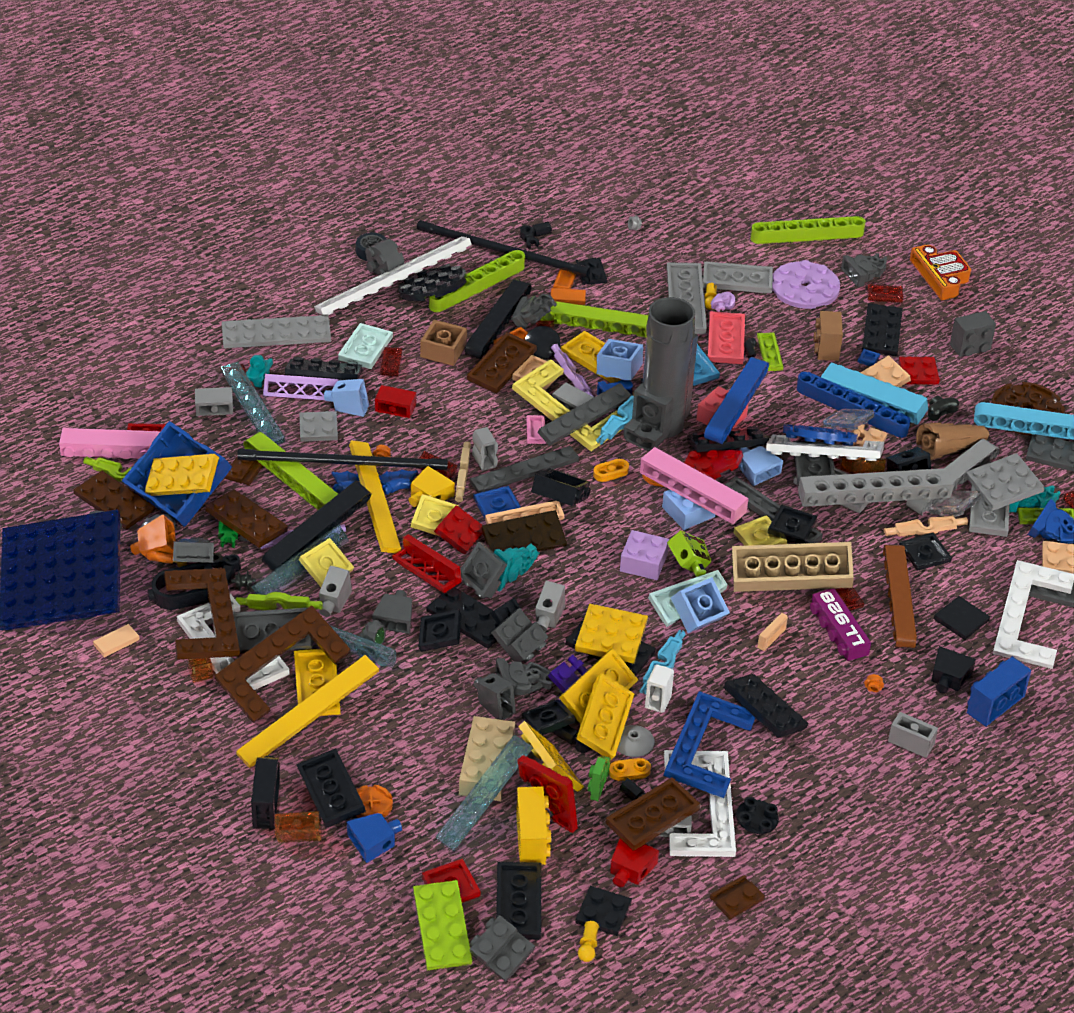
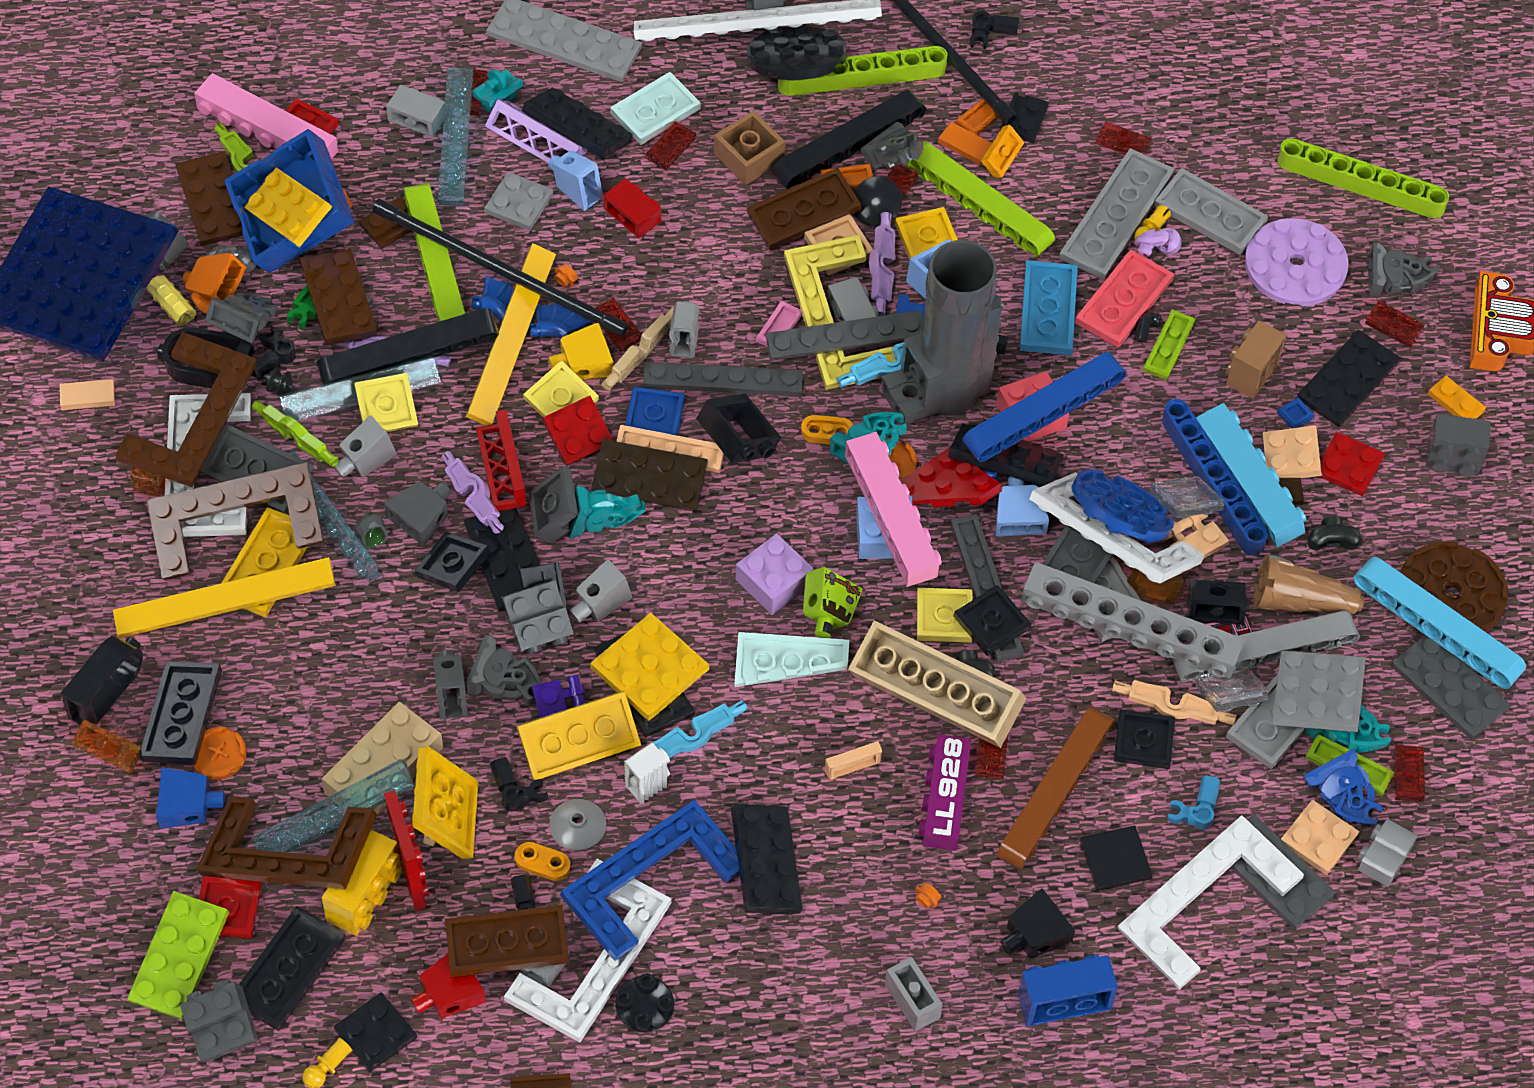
camera: 30 degrees right, 15 degrees up
(136, 565) = (171, 300): none -> light yellow axle
(428, 856) = (226, 860): none -> reddish brown plate
(430, 589) = (479, 499): none -> lavender piece
(549, 717) = (491, 745): black tile -> none
(594, 291) = (1002, 151): none -> light orange plate
(599, 774) = (493, 850): bright green plate -> none
(605, 716) = (555, 778): yellow plate -> none
(631, 470) = (882, 422): none -> teal piece
(634, 223) = (1135, 67): light grey plate -> none
(656, 262) = (1122, 139): none -> clear red plate
(700, 605) = (783, 681): light blue brick -> none
(944, 316) = (1456, 399): none -> light orange plate
(989, 573) = (1201, 815): none -> dark azure bar

